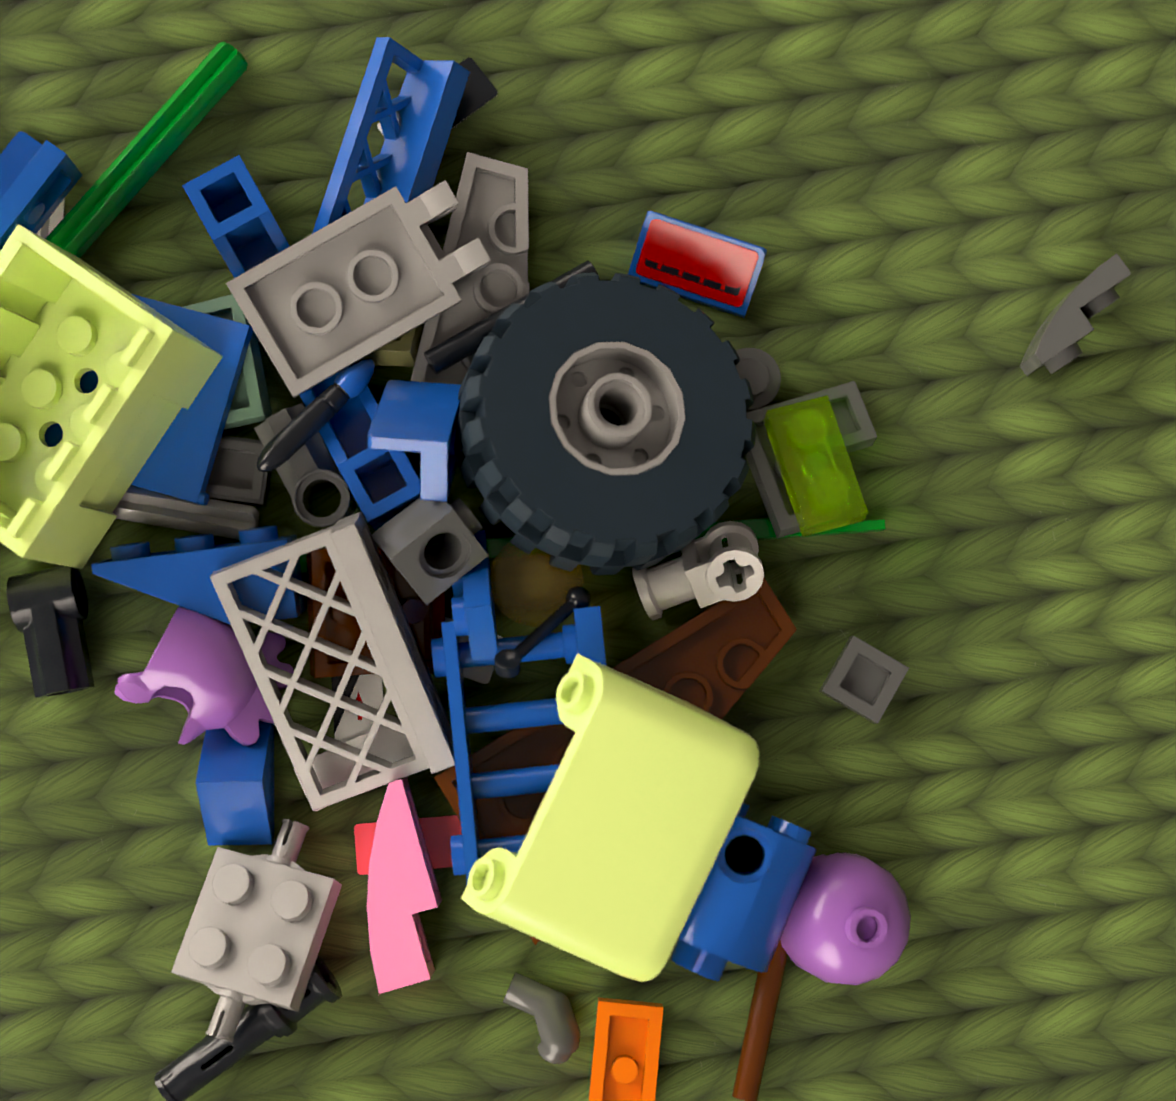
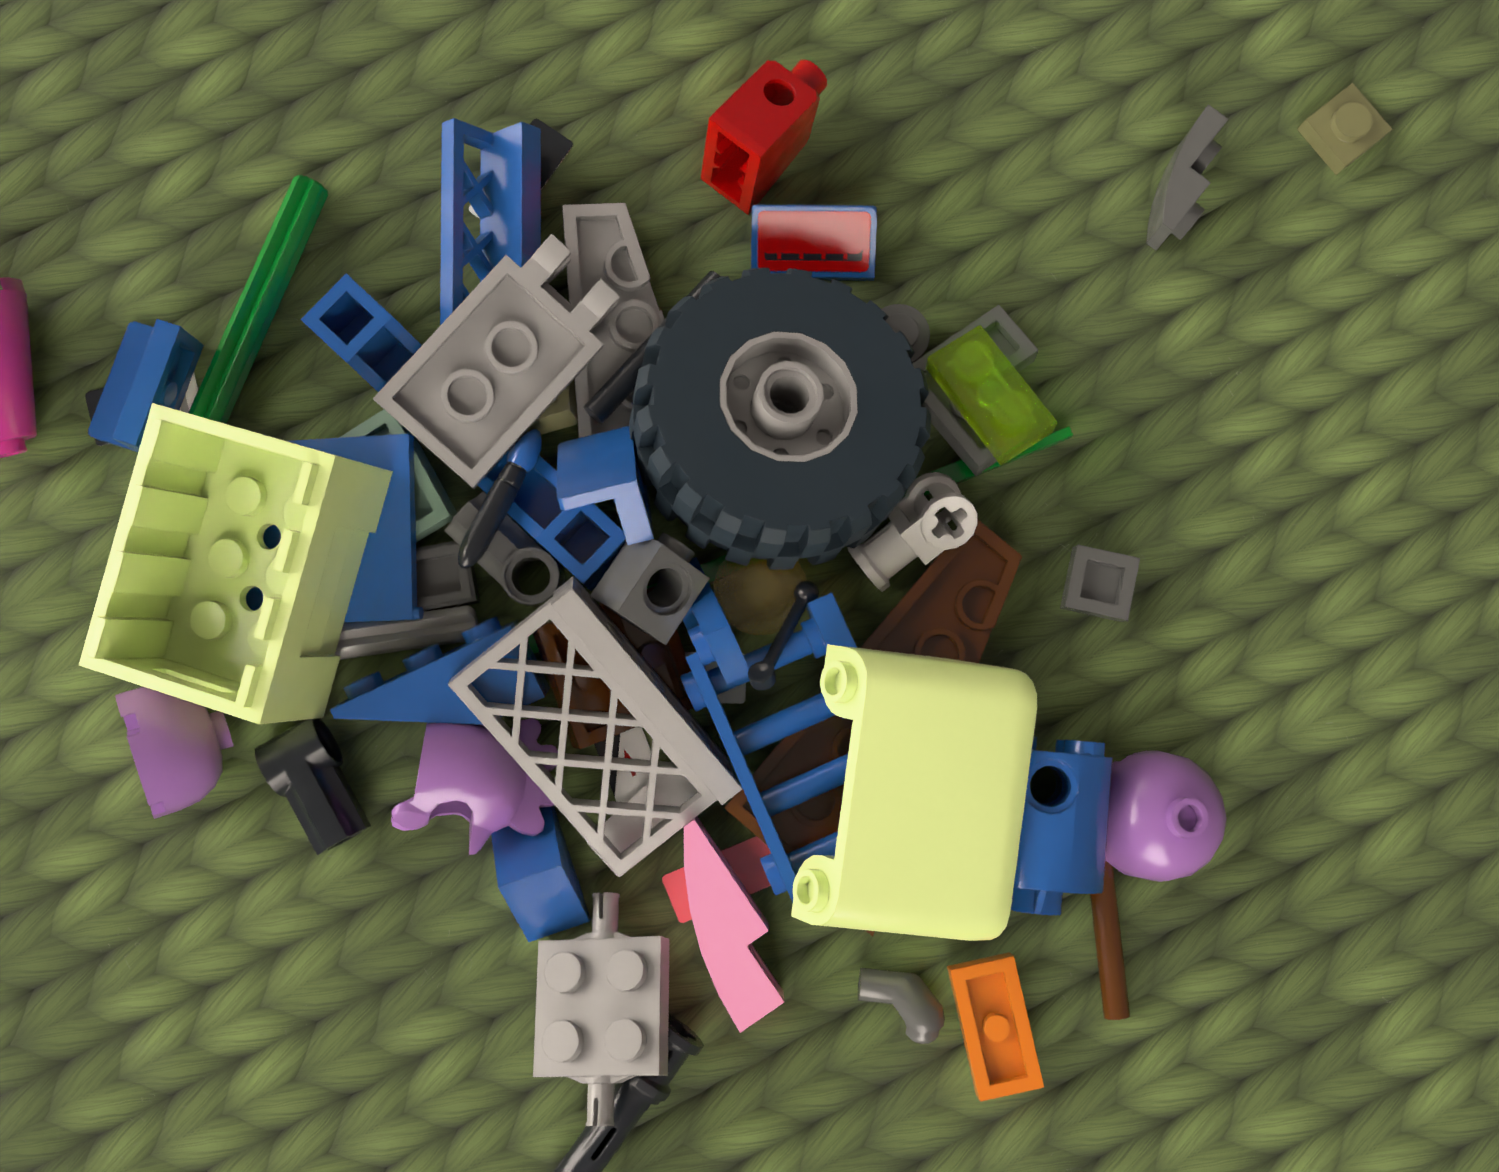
camera: 10 degrees left, 0 degrees up
(680, 141) = (761, 131): none -> red torso

